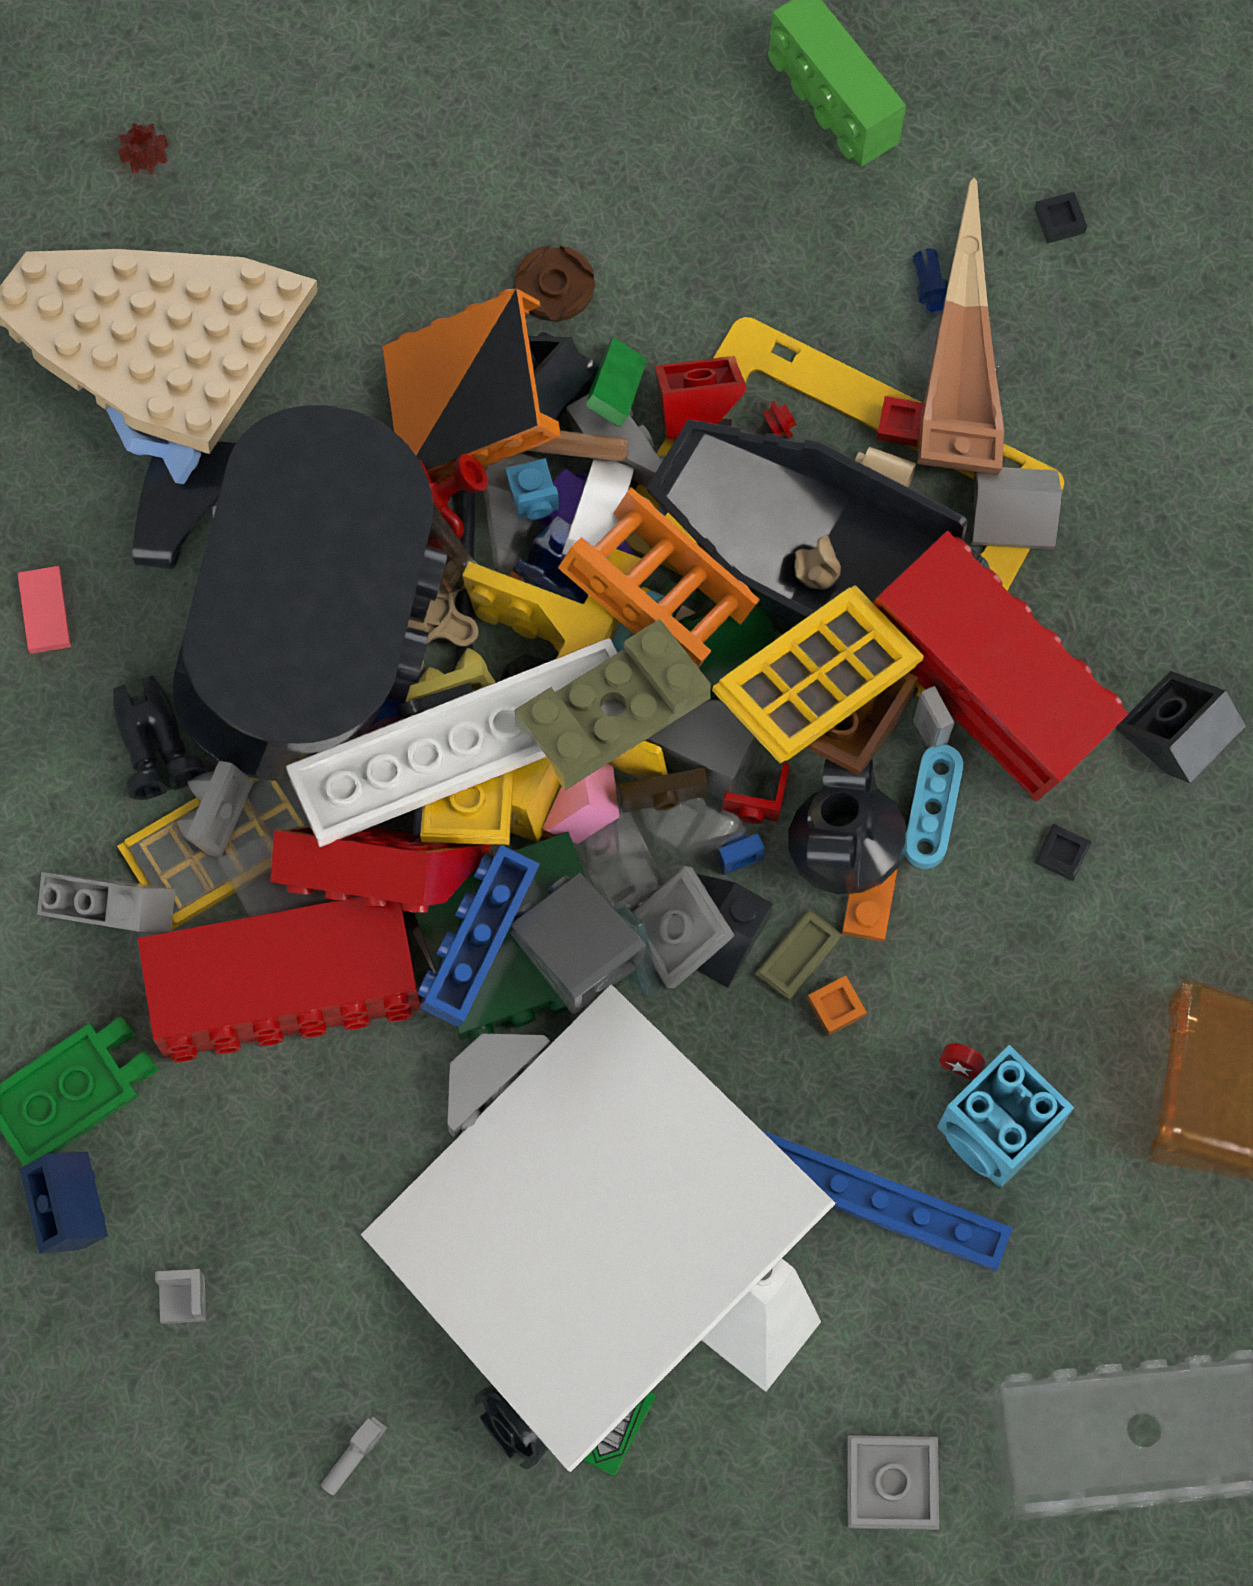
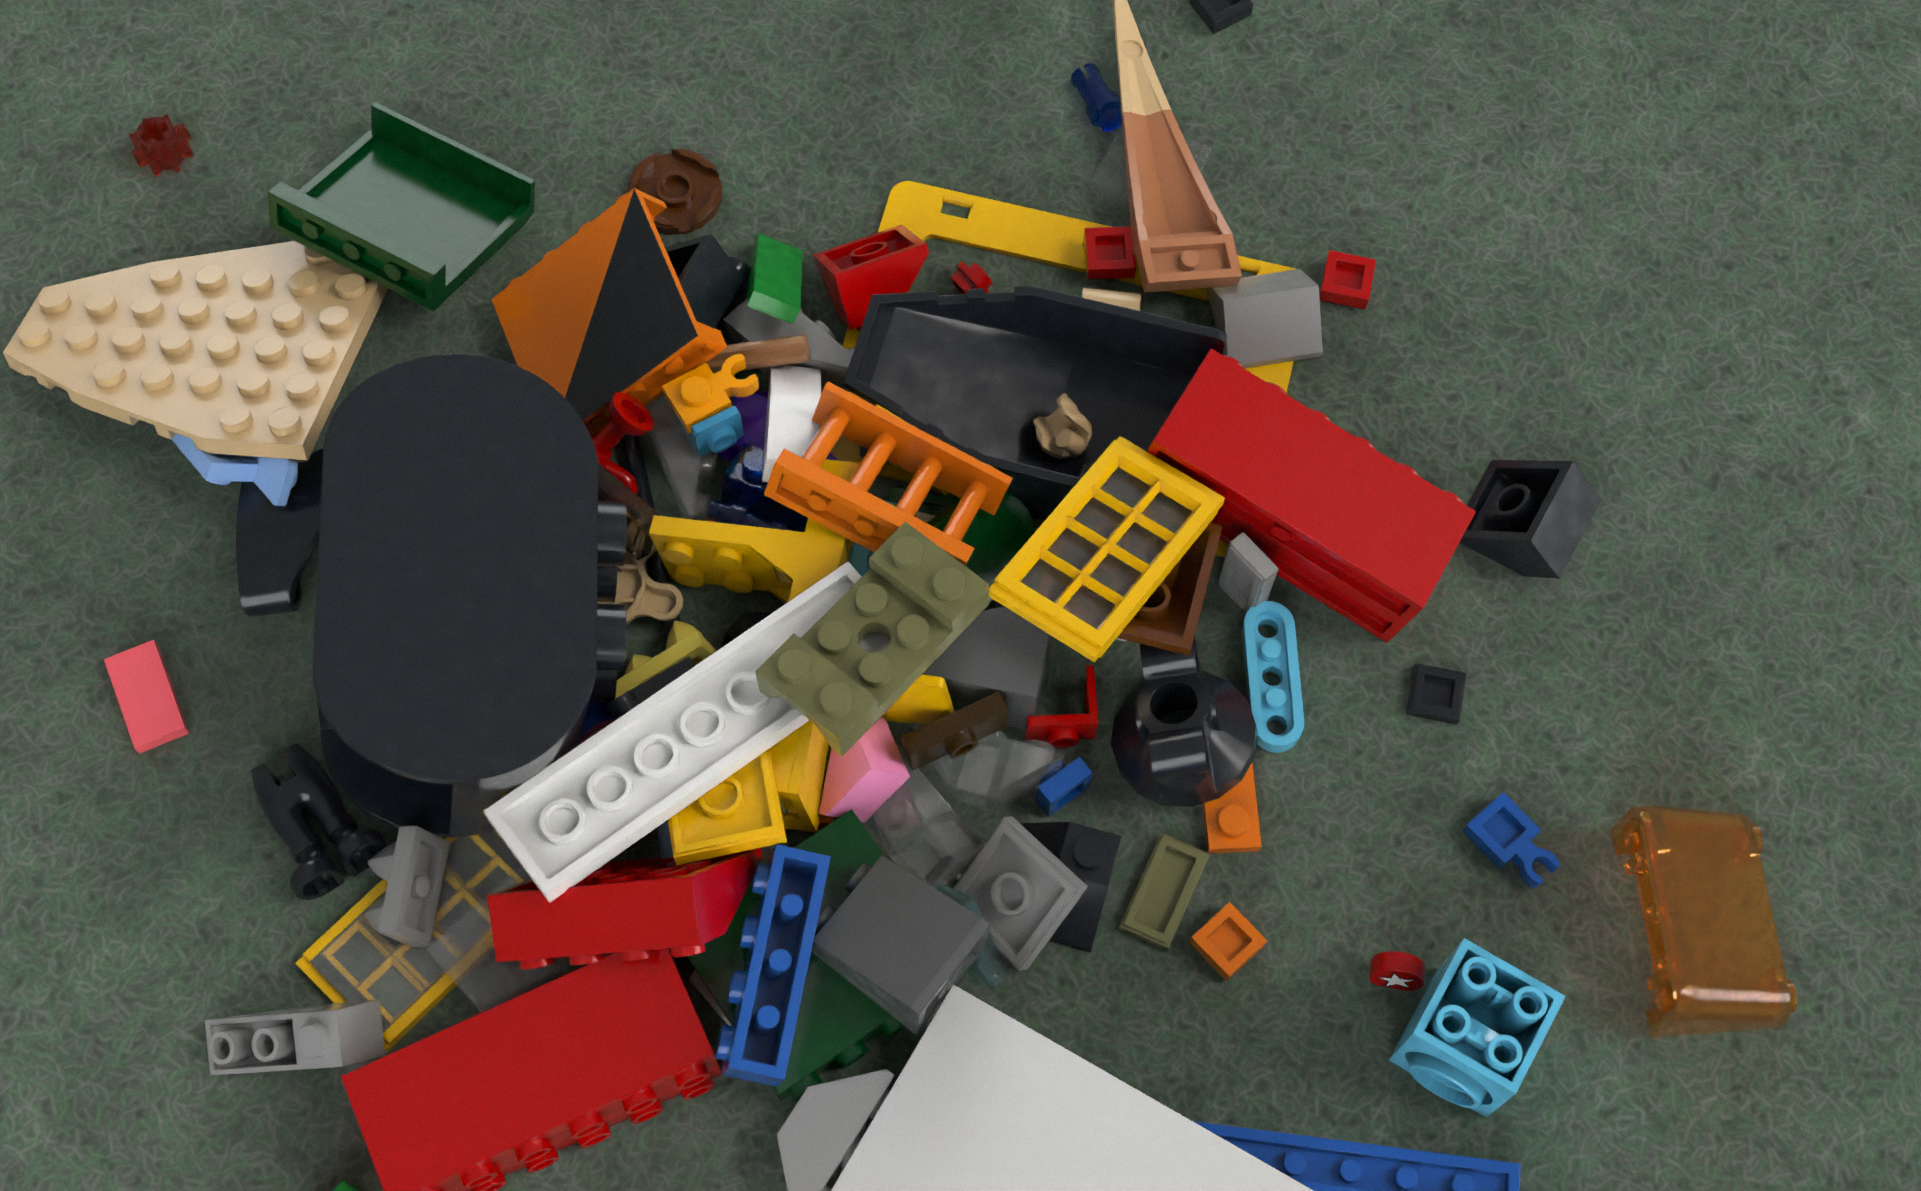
camera: 15 degrees left, 5 degrees down
(331, 251) = (406, 208): none -> dark green panel
(533, 471) = (704, 394): none -> light orange plate
(1083, 977) = (1507, 834): none -> blue plate
(1095, 489) = (1347, 279): none -> red plate

